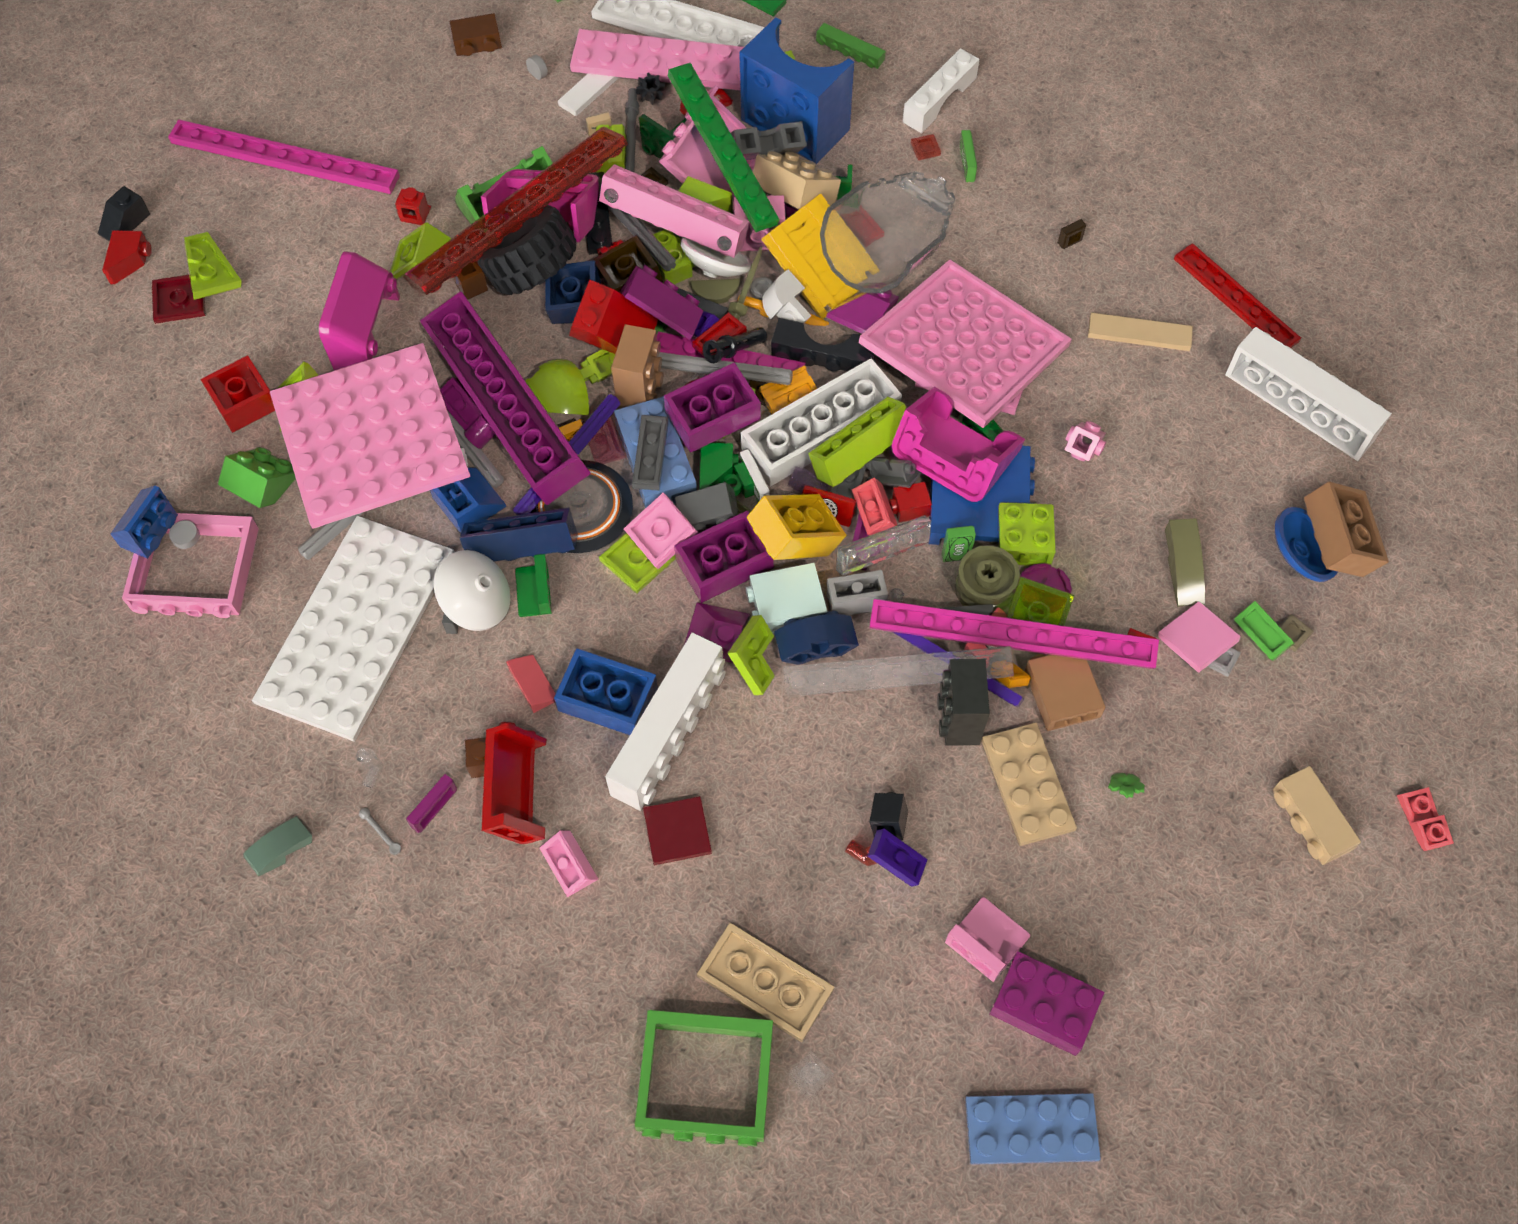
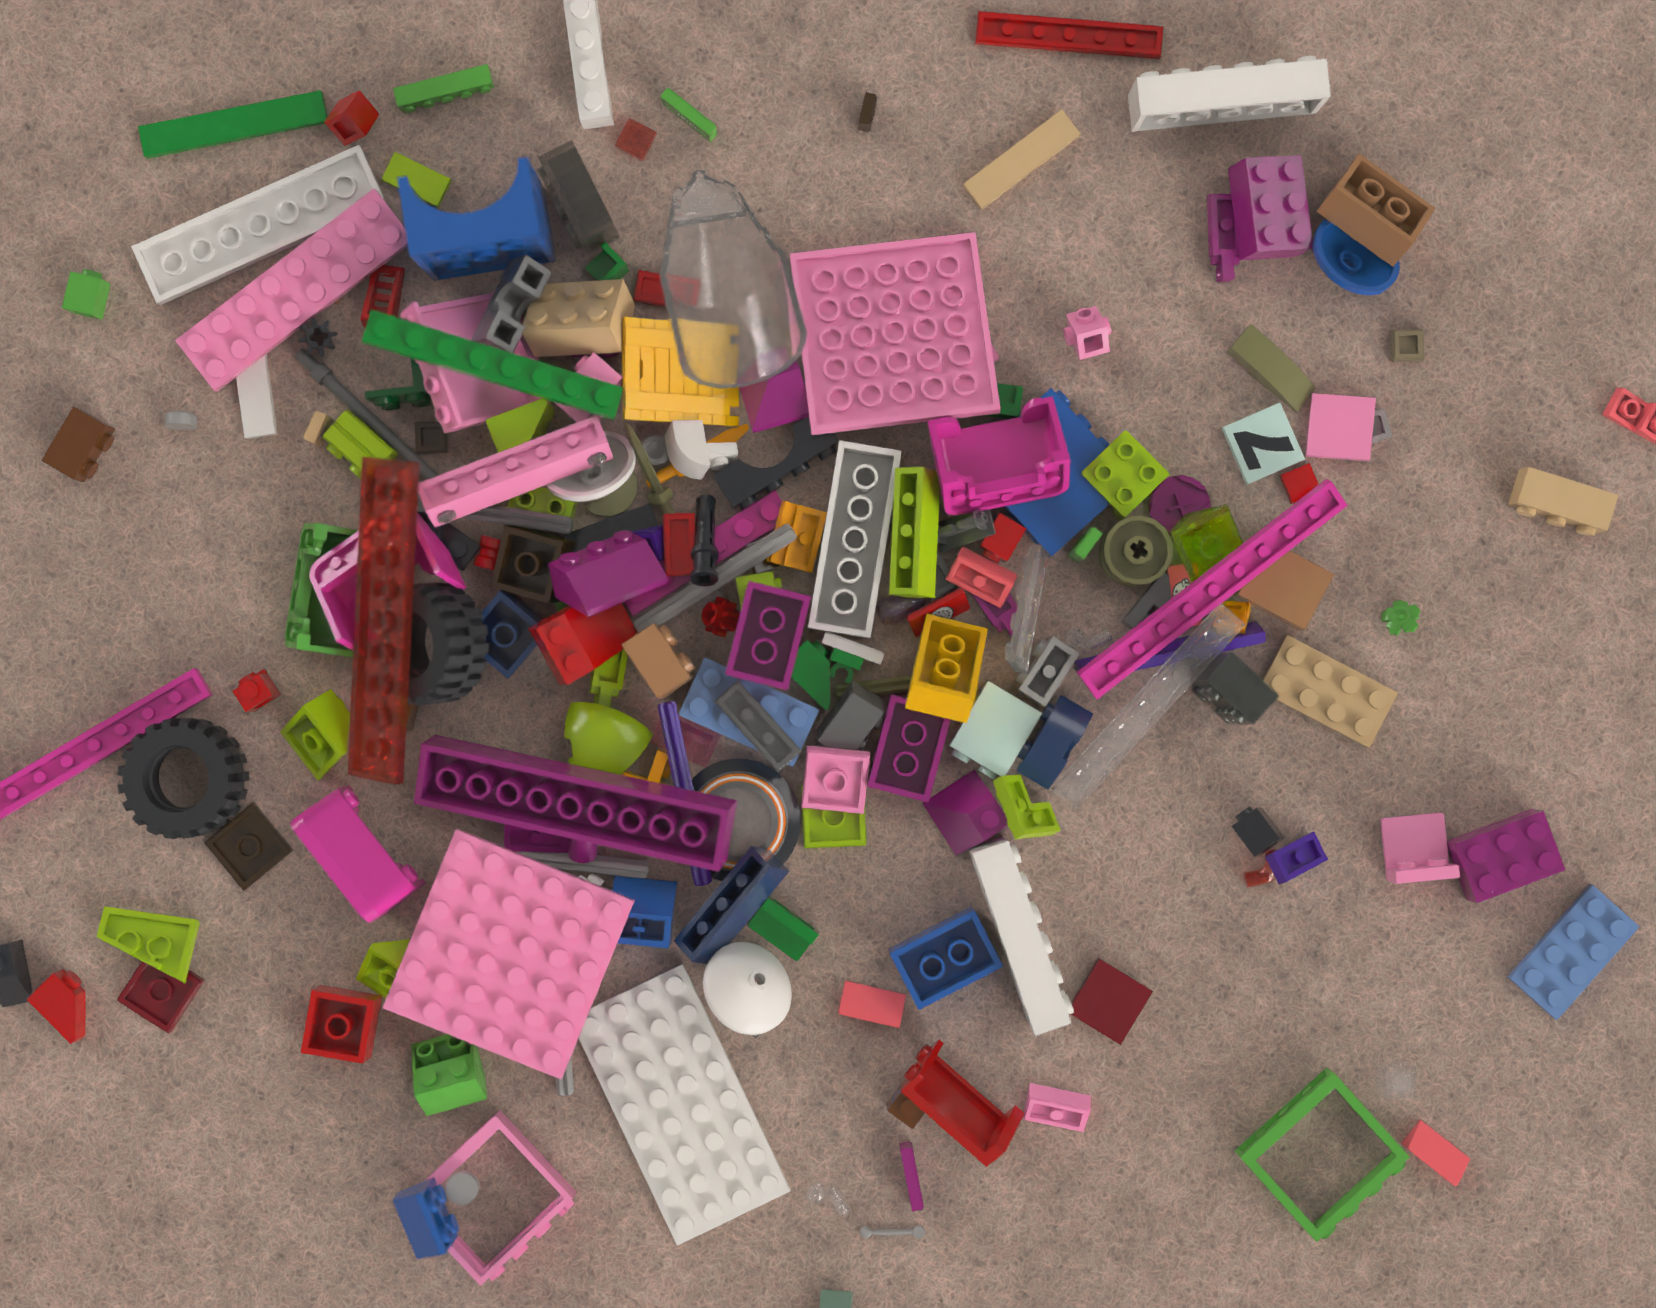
camera: 50 degrees left, 25 degrees up
(310, 275) = (248, 846): none -> dark brown tile
(331, 230) = (143, 786): none -> black tyre
(765, 982) = (1292, 1045): tan plate -> none
(786, 1167) = (1436, 1152): none -> coral slope
(791, 17) = (352, 118): none -> red panel
(861, 135) = (577, 198): none -> clear smoke brick
(1136, 602) = (1263, 443): none -> light aqua tile
(1230, 469) = (1222, 236): none -> magenta hinge
(1264, 631) = (1386, 369): bright green tile -> none
(1274, 474) = (1270, 207): none -> magenta brick

